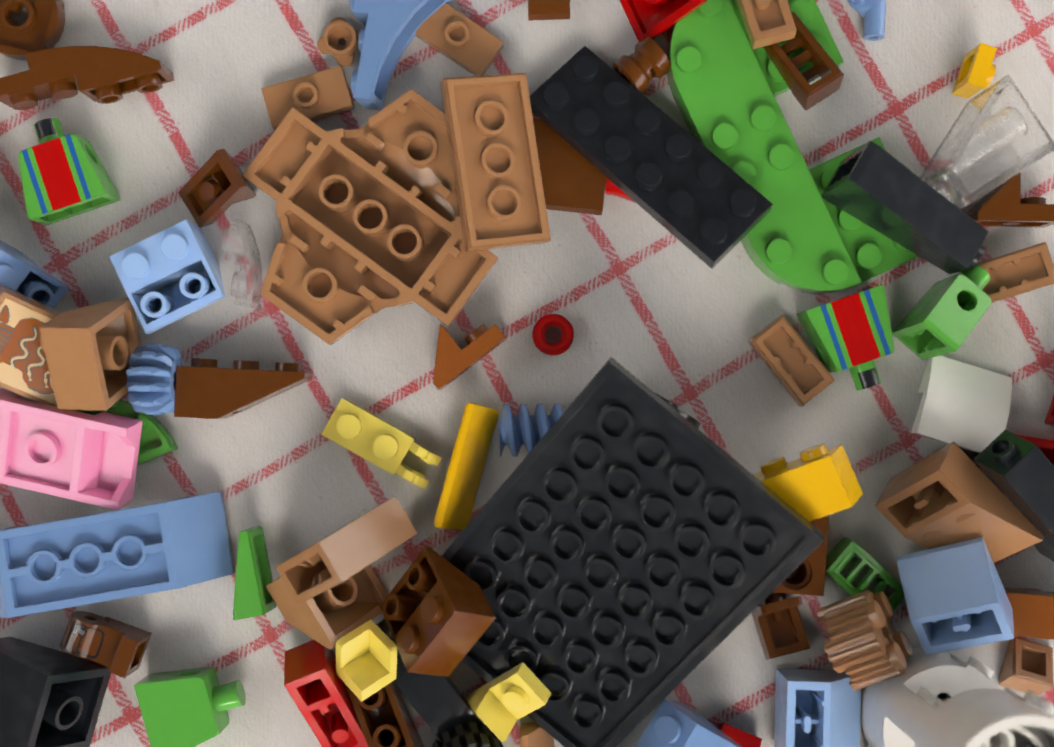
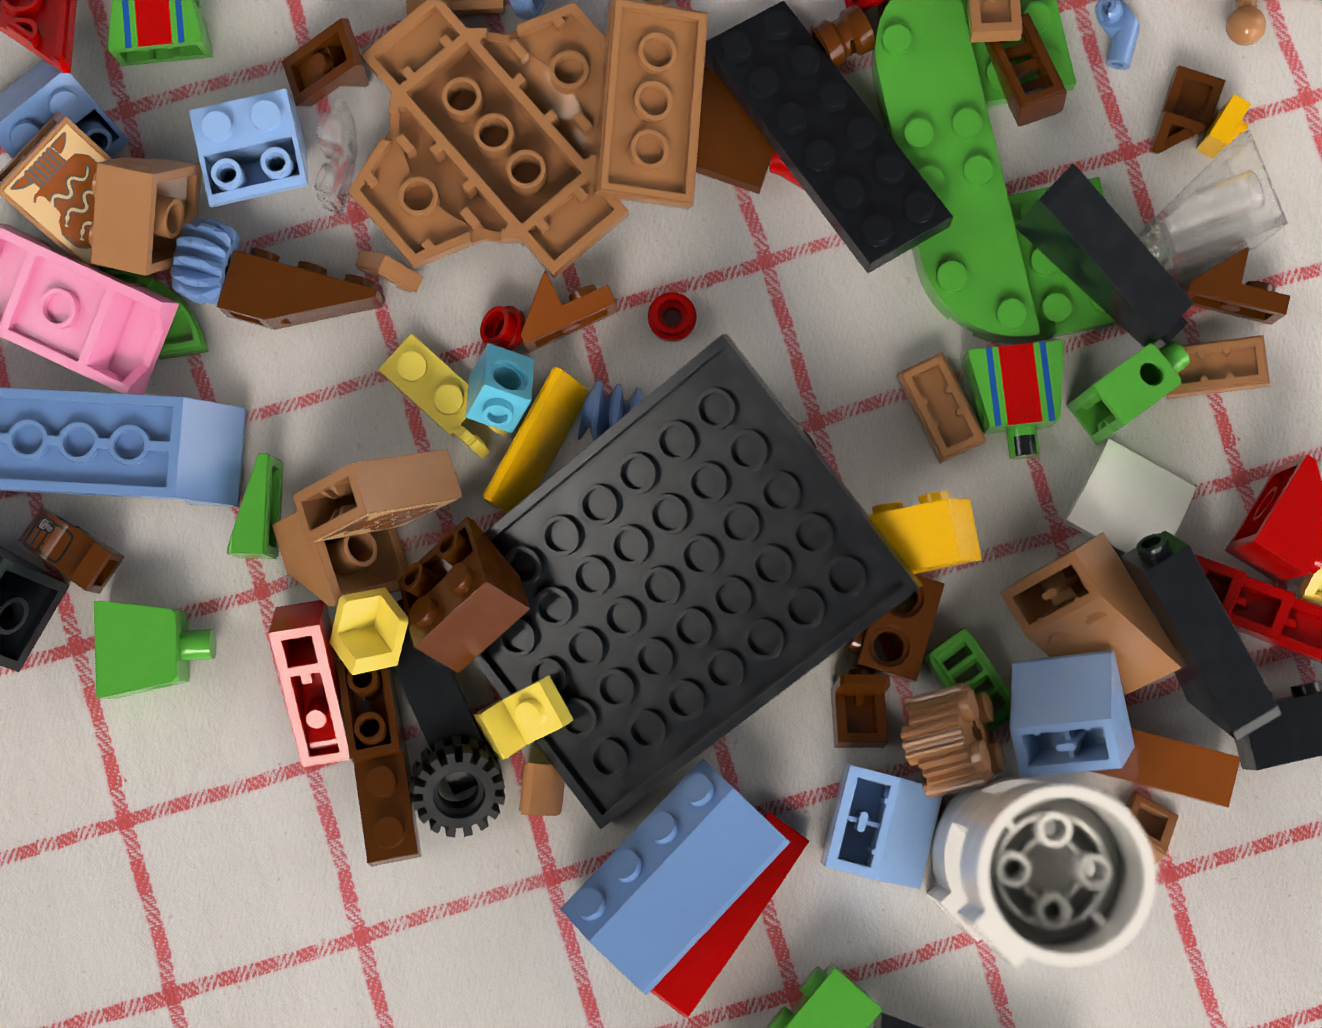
camera: 15 degrees right, 5 degrees down
(310, 350) = (390, 269): none -> medium nougat tile
(416, 377) = (503, 327): none -> red plate
(426, 431) = (500, 388): none -> medium azure brick
(938, 62) = (1186, 107): none -> reddish brown slope

